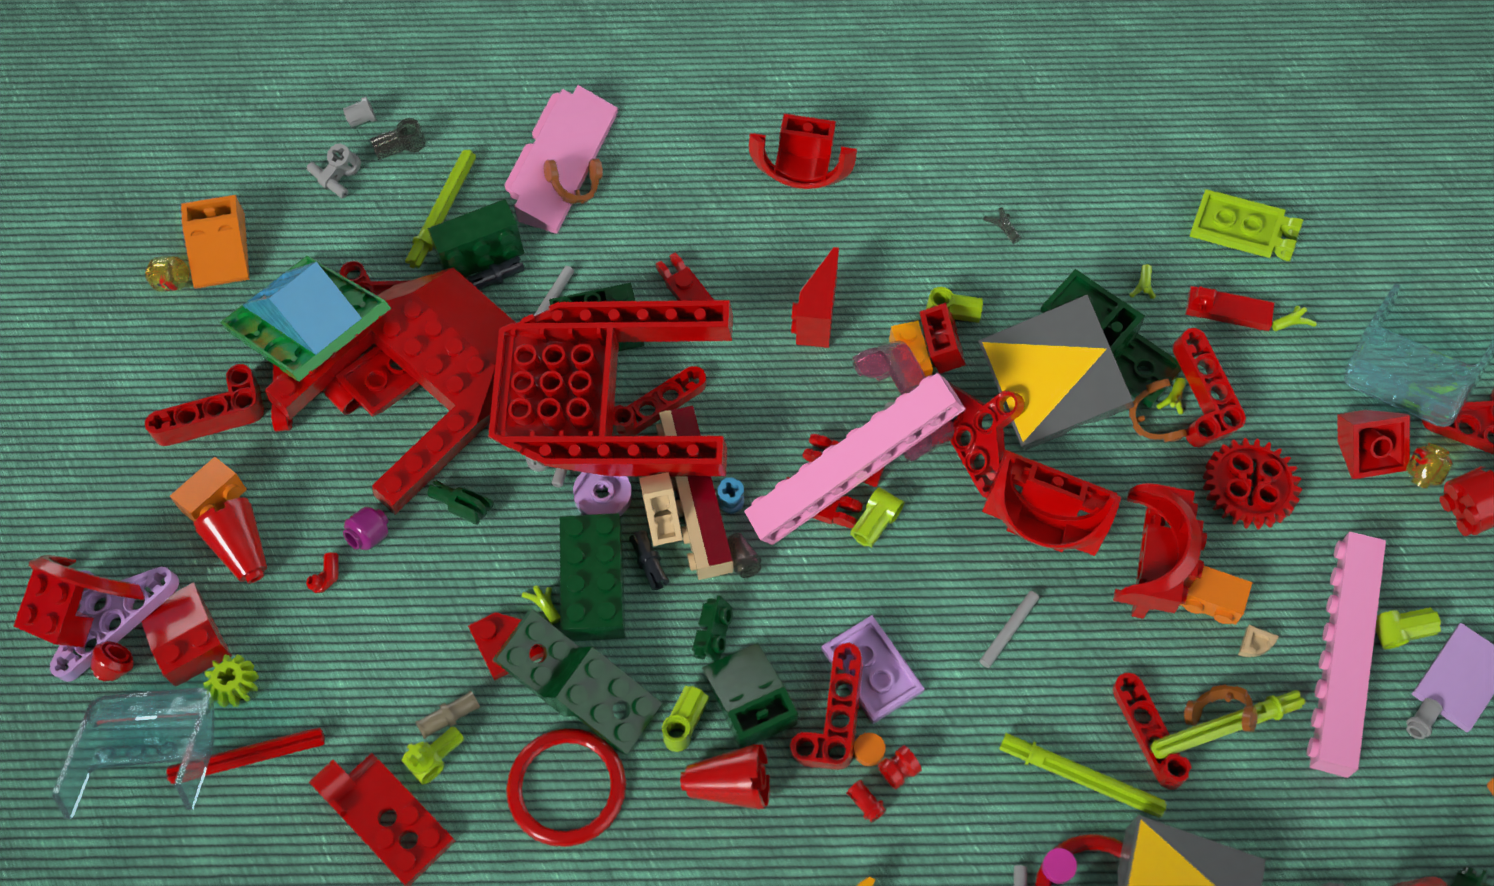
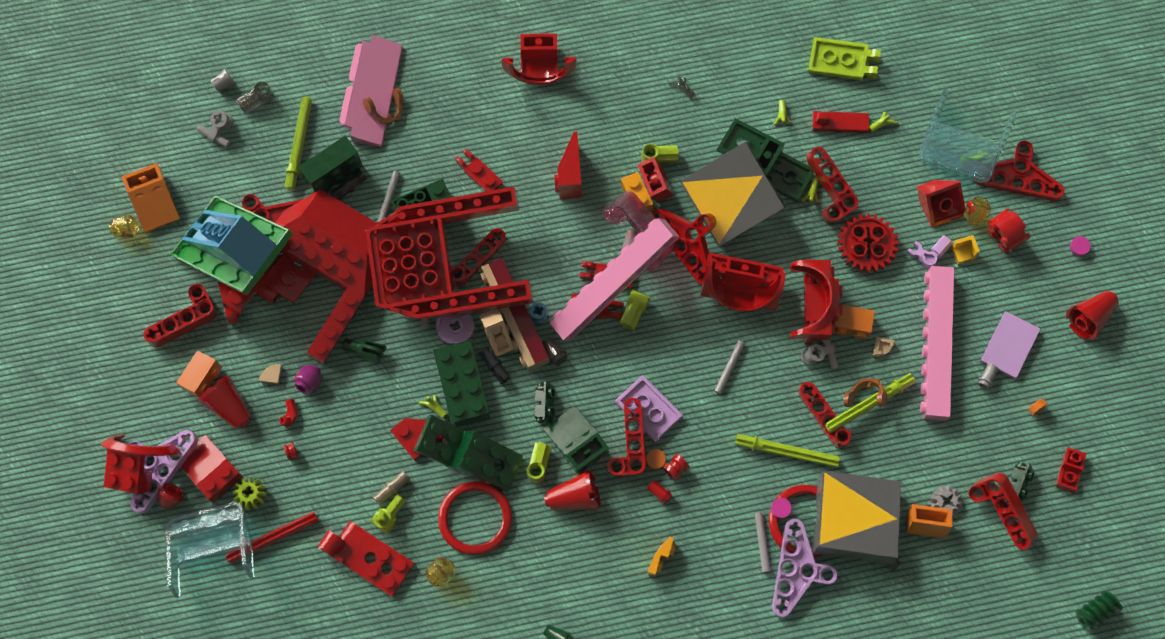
camera: 10 degrees left, 10 degrees up
(311, 629) = (291, 451): none -> red bush
(315, 513) = (271, 374): none -> tan tile
(490, 861) = (440, 572): none -> clear yellow head
(1152, 630) = (819, 353): none -> light grey piece
(1167, 437) = (813, 220): dark orange piece -> none
(1344, 521) = (930, 258): none -> lavender bar
(1398, 628) = (967, 322): lime piece -> none
(1405, 518) = (965, 249): none -> yellow panel

